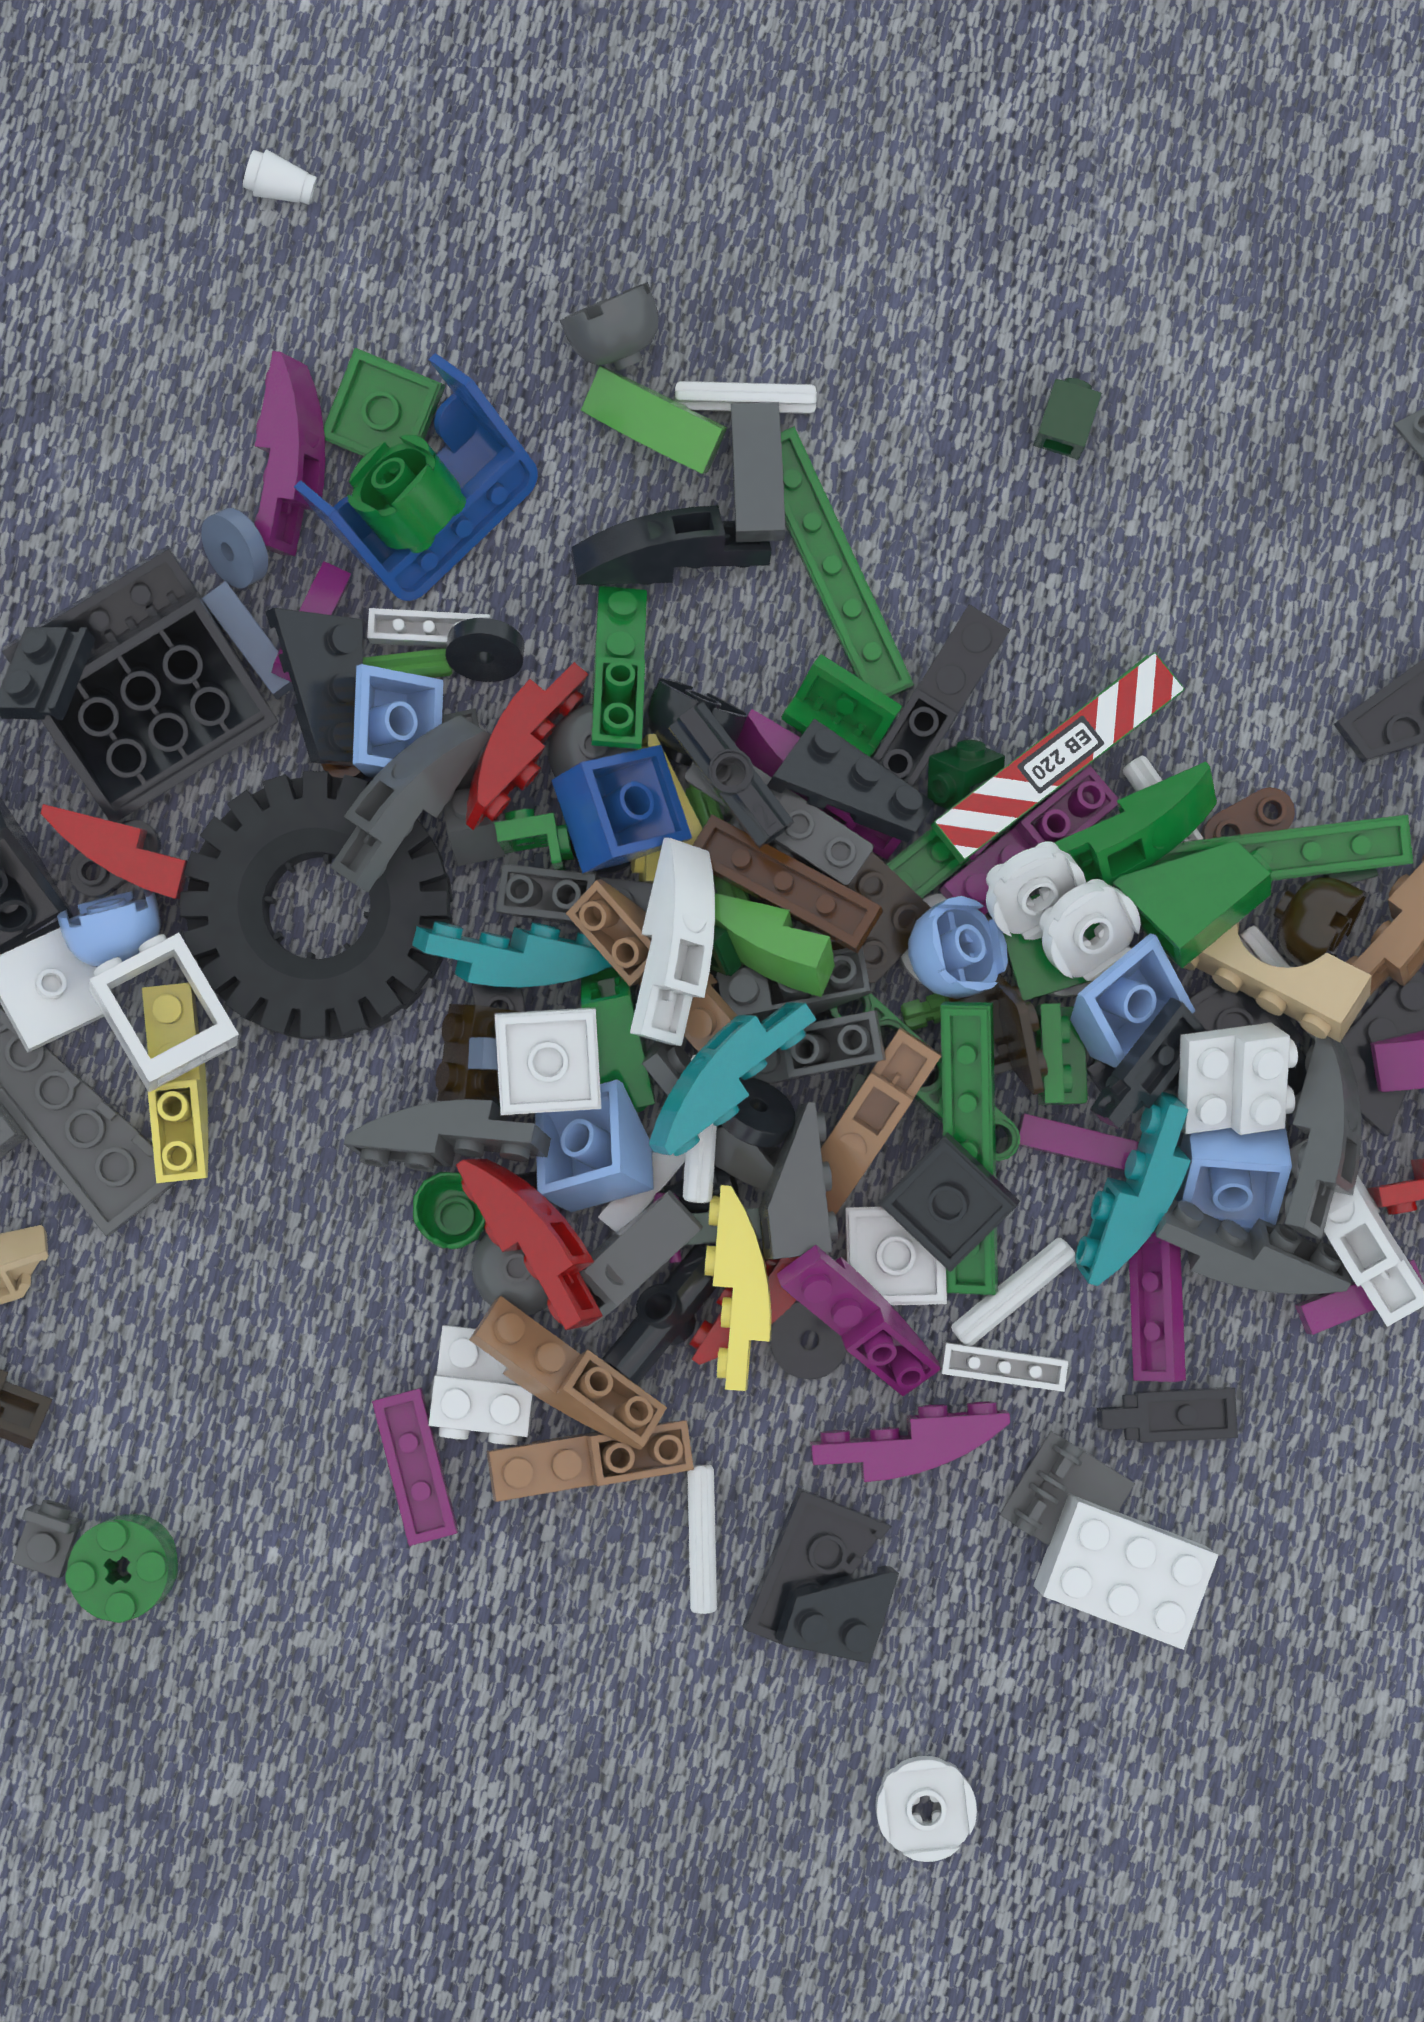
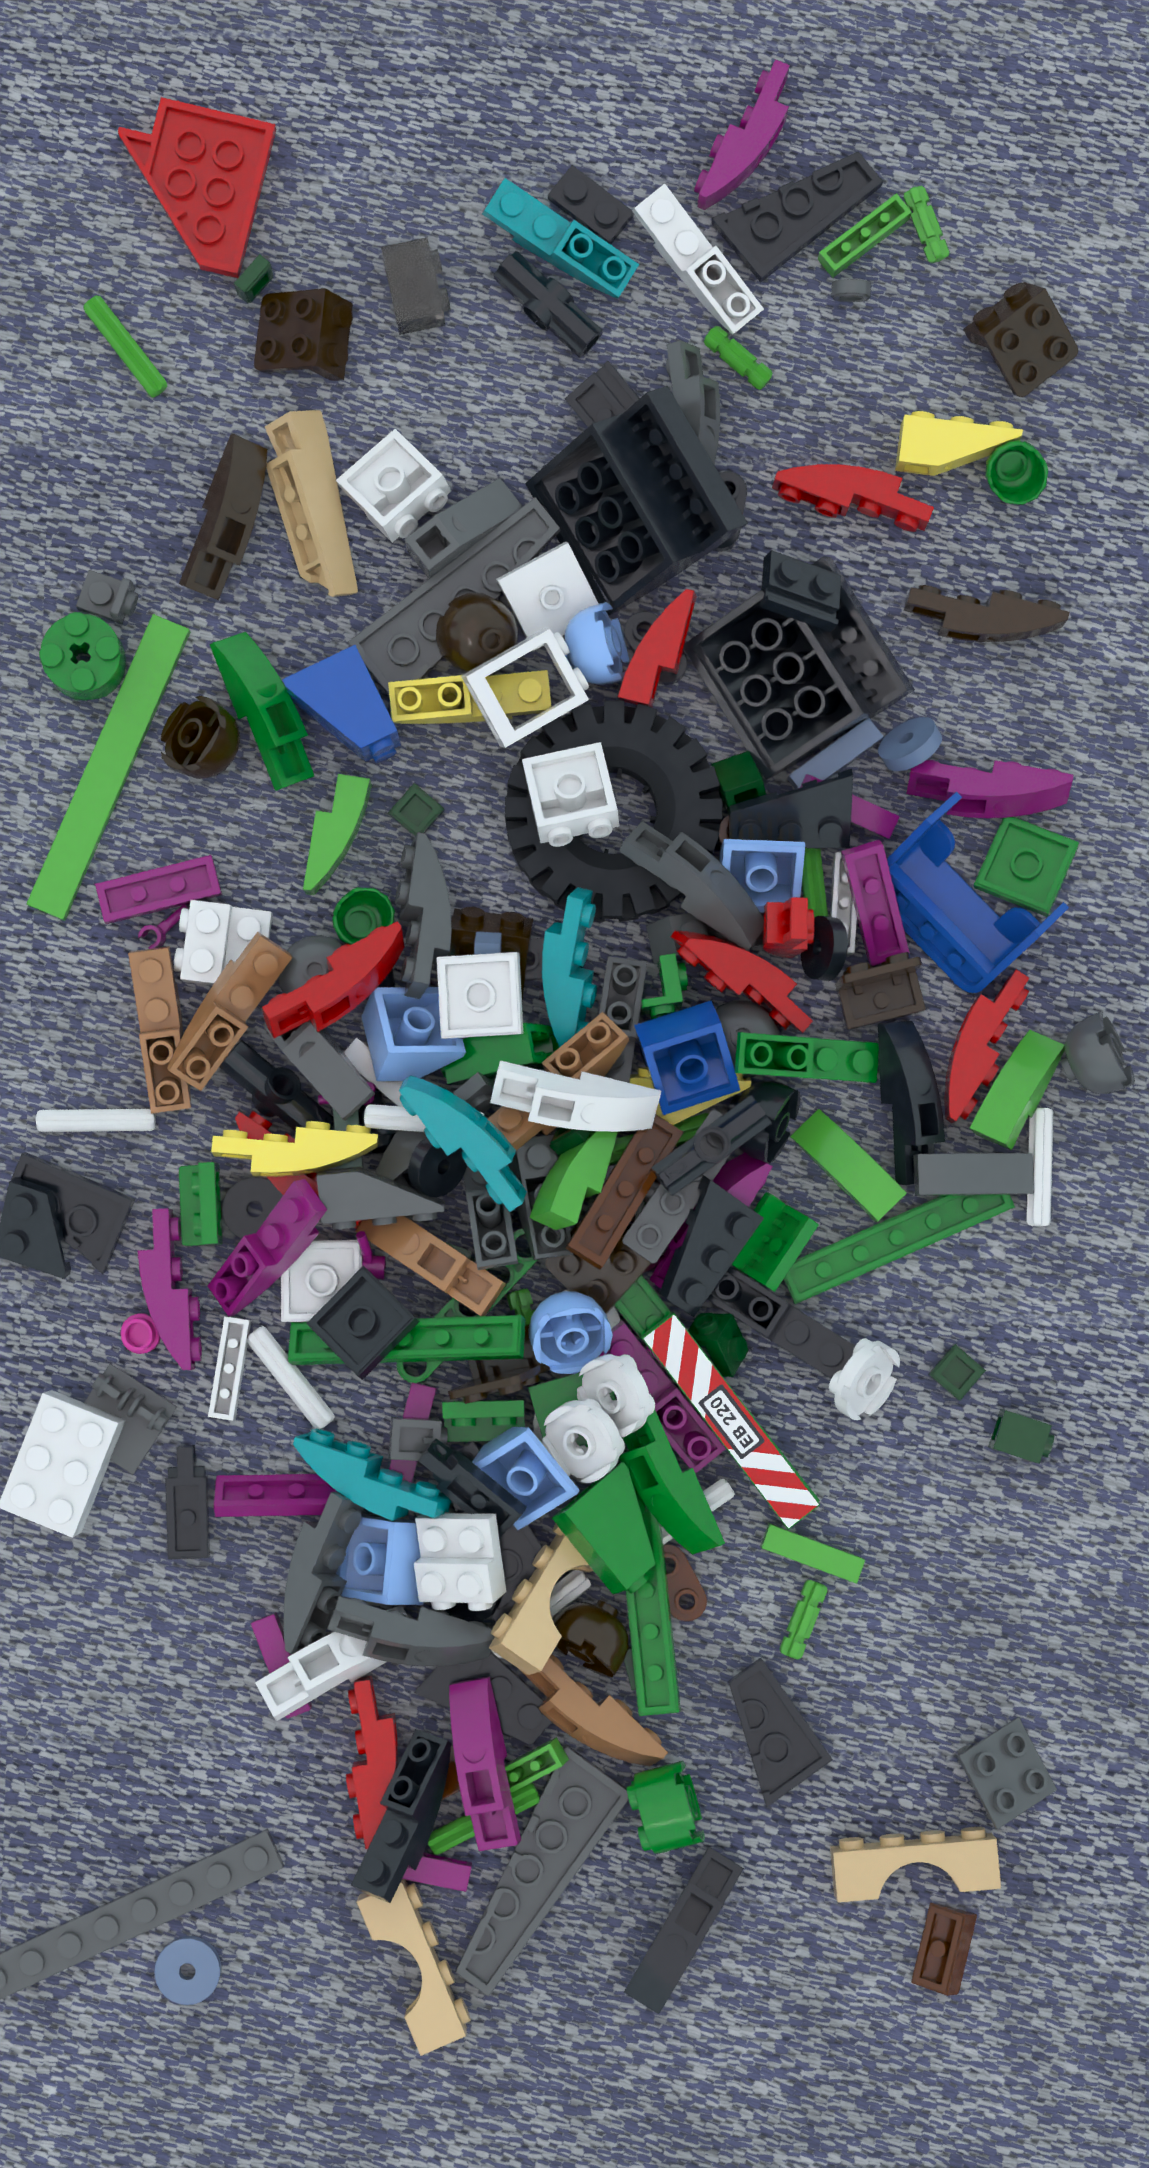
camera: 90 degrees right, 0 degrees up
(82, 442) = (1001, 620): none -> dark brown slope
(92, 1077) = (475, 630): none -> dark brown cylinder
(179, 1337) = (264, 700): none -> green slope
(183, 1234) = (346, 704): none -> blue slope
(226, 1417) = (200, 738): none -> dark brown cylinder
(262, 1532) = (108, 767): none -> bright green tile
(278, 752) = (738, 779): none -> dark green brick
(297, 952) = (571, 794): none -> white plate
(316, 1149) = (416, 810): none -> dark green tile
(341, 1246) = (336, 831): none -> bright green slope
(405, 493) = (952, 883): green brick -> none
(428, 588) = (874, 901): none -> magenta plate
(461, 681) = (788, 927): none -> red slope
(463, 1460) = (162, 928): none -> magenta hand
(542, 586) = (880, 992): none -> dark brown bracket
(616, 477) = (971, 1058): none -> red slope
(748, 620) = (848, 1165): none -> bright green slope
(805, 1406) = (200, 1204): none -> green bracket
(873, 1192) = (373, 1263): none -> magenta hand
(963, 1478) = (139, 1334): none -> dark pink plate
(991, 495) = (956, 1372): none -> dark green tile
(1004, 597) = (865, 1379): none -> white plate
(1084, 1137) = (413, 1436): none -> dark grey bracket
(1210, 663) = (812, 1553): none -> bright green piece
(1288, 673) = (803, 1619): none -> bright green axle

